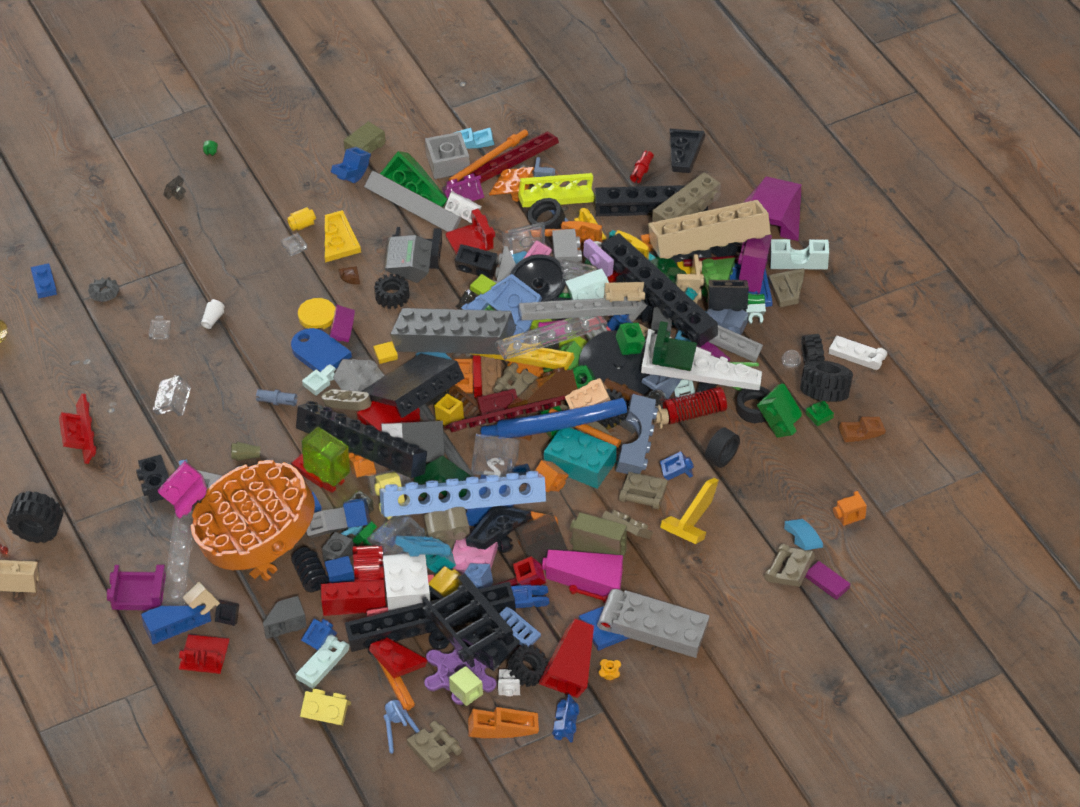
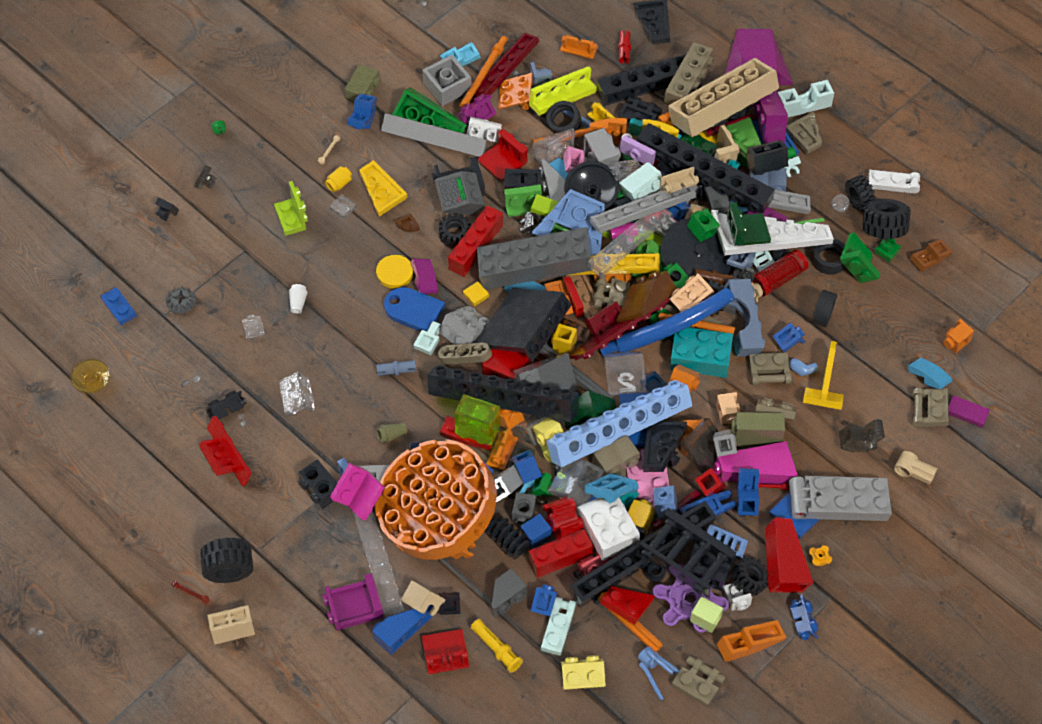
camera: 20 degrees left, 10 degrees up
(108, 386) = (232, 400): none -> black hinge
(125, 207) = (165, 209): none -> black tile
(241, 237) = (292, 212): none -> lime bracket
(257, 668) = (502, 652): none -> yellow pin
(295, 200) = (321, 160): none -> tan hinge
(343, 493) = (502, 450): none -> orange hinge
(418, 295) = (478, 235): none -> red brick
(464, 275) = (520, 199): none -> bright green bracket
(560, 539) = (725, 443): none -> light grey brick
(564, 592) = (748, 492): none -> blue brick
(584, 506) = (727, 407): none -> light nougat brick
(595, 156) = (581, 48): none -> orange hinge
(624, 225) = (633, 111): none -> black plate
(676, 499) = (801, 368): none -> medium blue arm
(702, 575) = (861, 439): none -> clear smoke brick
(741, 612) = (909, 465): none -> tan piece

